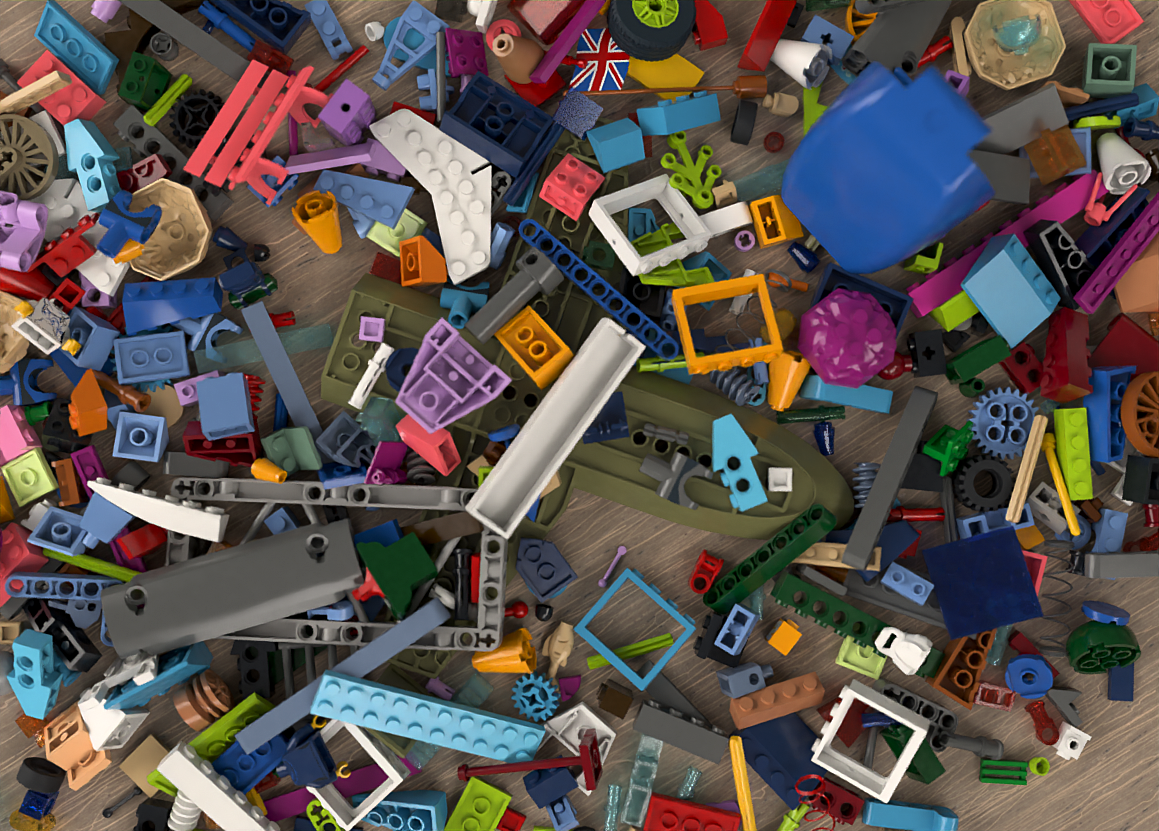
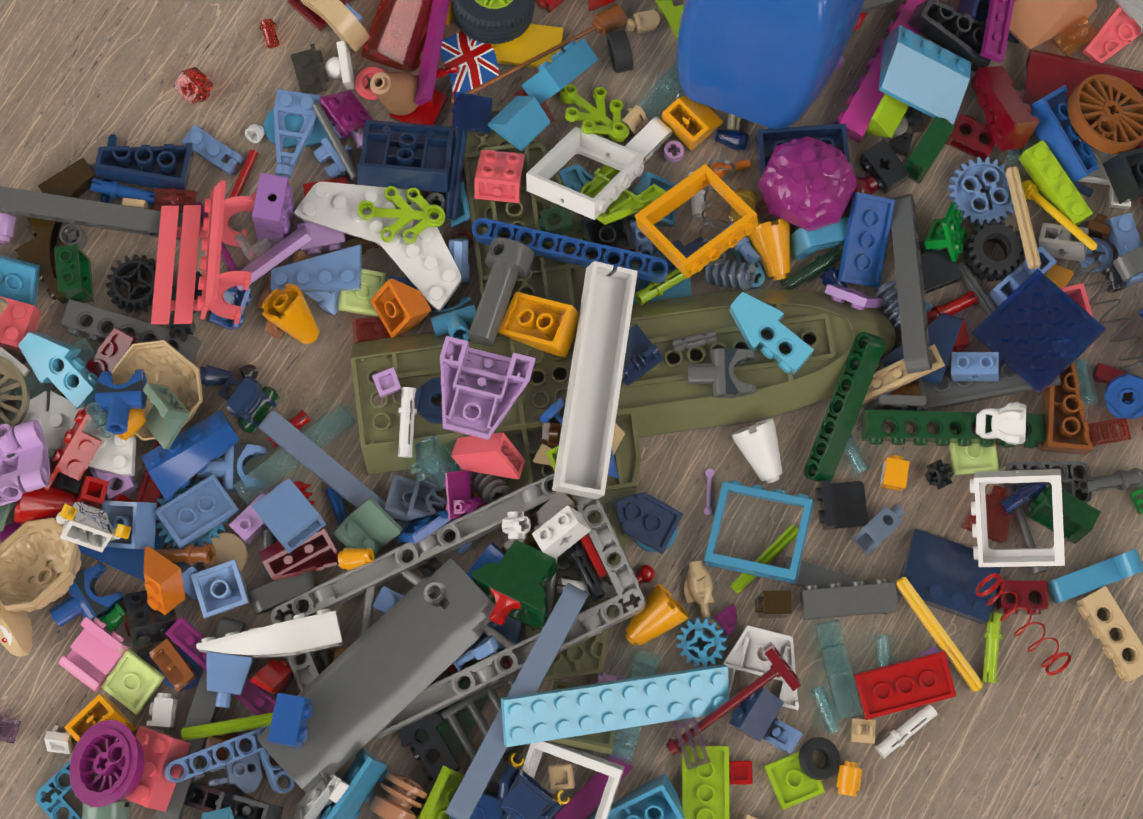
camera: 25 degrees left, 10 degrees down
(60, 532) = (191, 708): light blue slope -> none
(96, 229) = (98, 418): none -> clear light blue pin
(131, 595) = (290, 721): none -> blue brick
(159, 109) = (99, 280): lime axle -> none
(160, 258) = (166, 415): none -> sand green bracket
(233, 45) = (135, 203): none -> tan tile
(352, 752) = (561, 776): none -> tan tile
(420, 519) = (516, 525): none -> white gear
(455, 547) = (561, 532): none -> white brick
(466, 180) = (404, 214): none -> lime plant
(482, 762) = (685, 723): none -> tile
(543, 612) = (669, 563): black hinge -> none
(676, 553) = (761, 449): none -> white cone
(705, 571) = (793, 449): red piece -> none
(737, 629) = (850, 484): medium blue brick -> none
(776, 700) = (919, 531): nougat brick -> none
(779, 479) = (814, 329): white tile -> none
(780, 144) = (654, 49): clear red bush -> none
(822, 657) = (939, 474): none -> black gear
(832, 463) = (857, 298): none -> medium lavender wing
(873, 415) = (866, 239): none -> blue tile
(927, 264) = (838, 92): lime panel -> none
(968, 390) = (937, 175): dark green cone -> none

